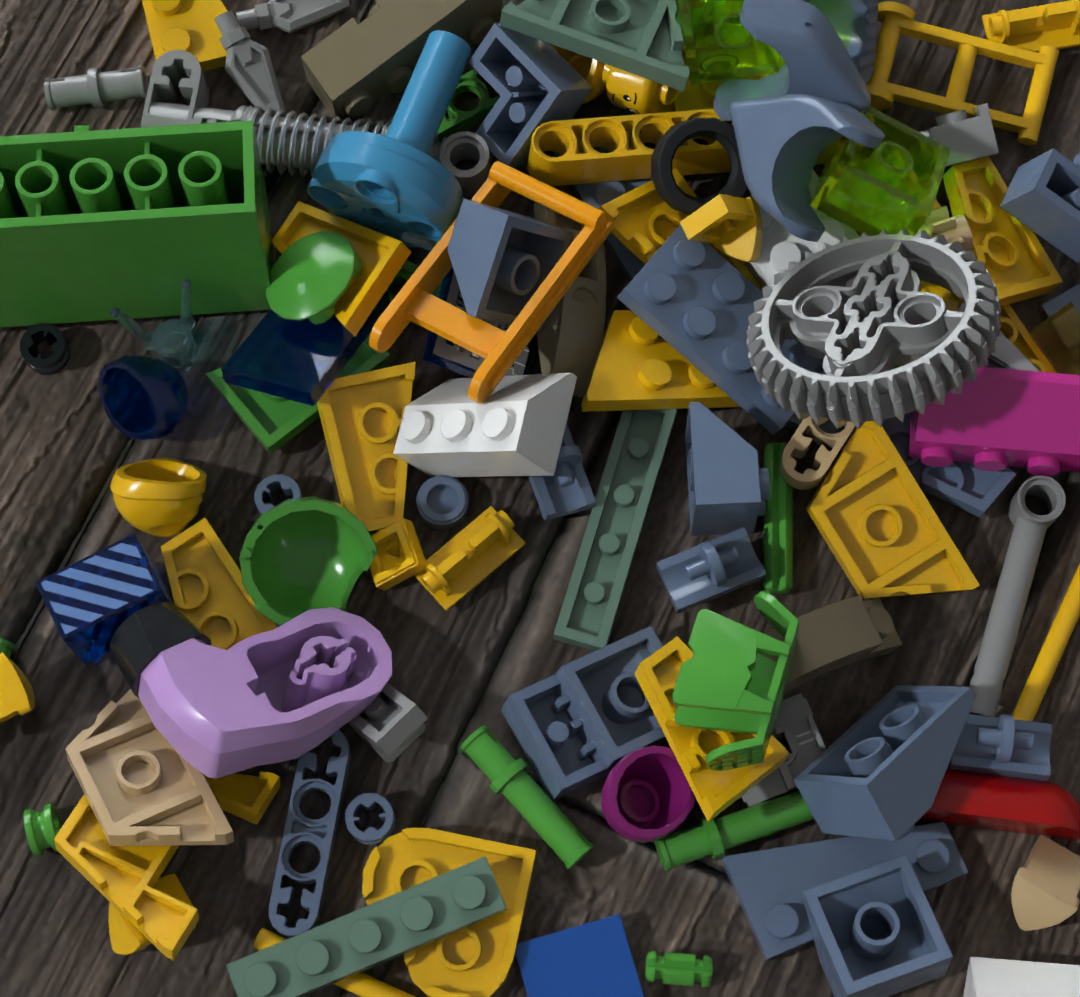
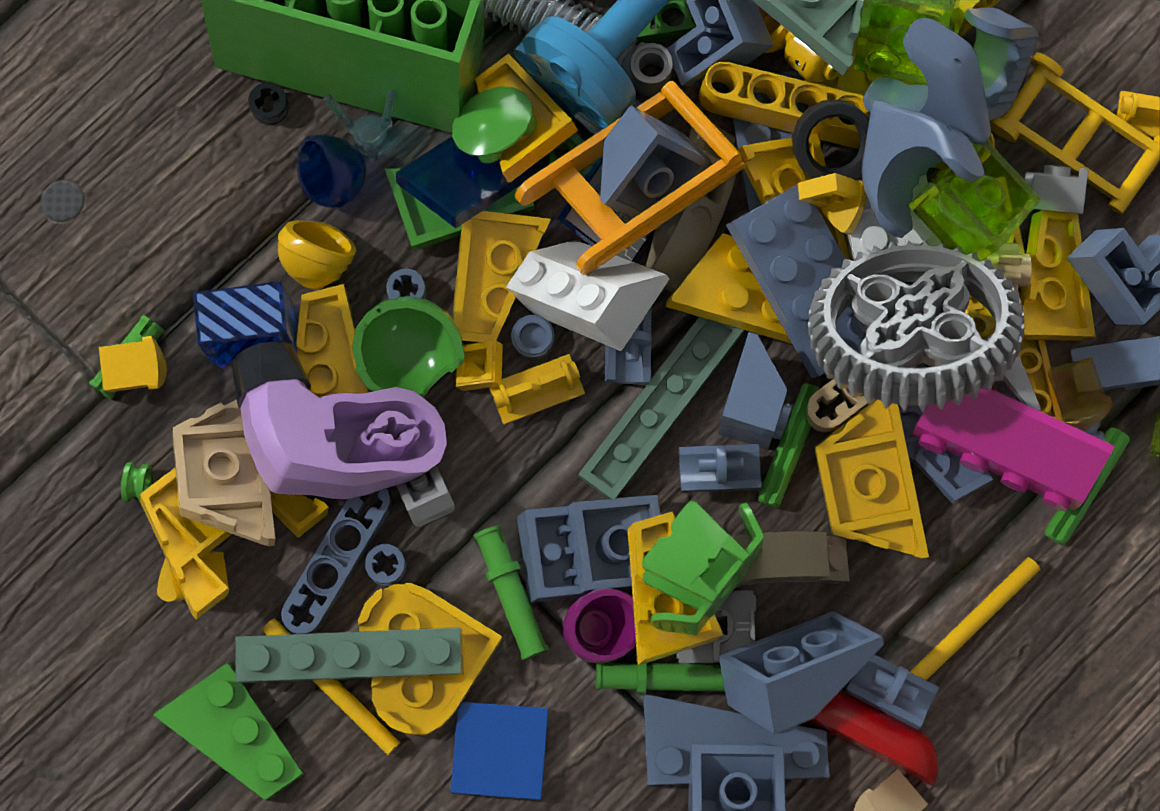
camera: 20 degrees right, 5 degrees up
(679, 969) = (577, 767): bright green piece -> none
(1013, 591) = (949, 575): light grey piece -> none

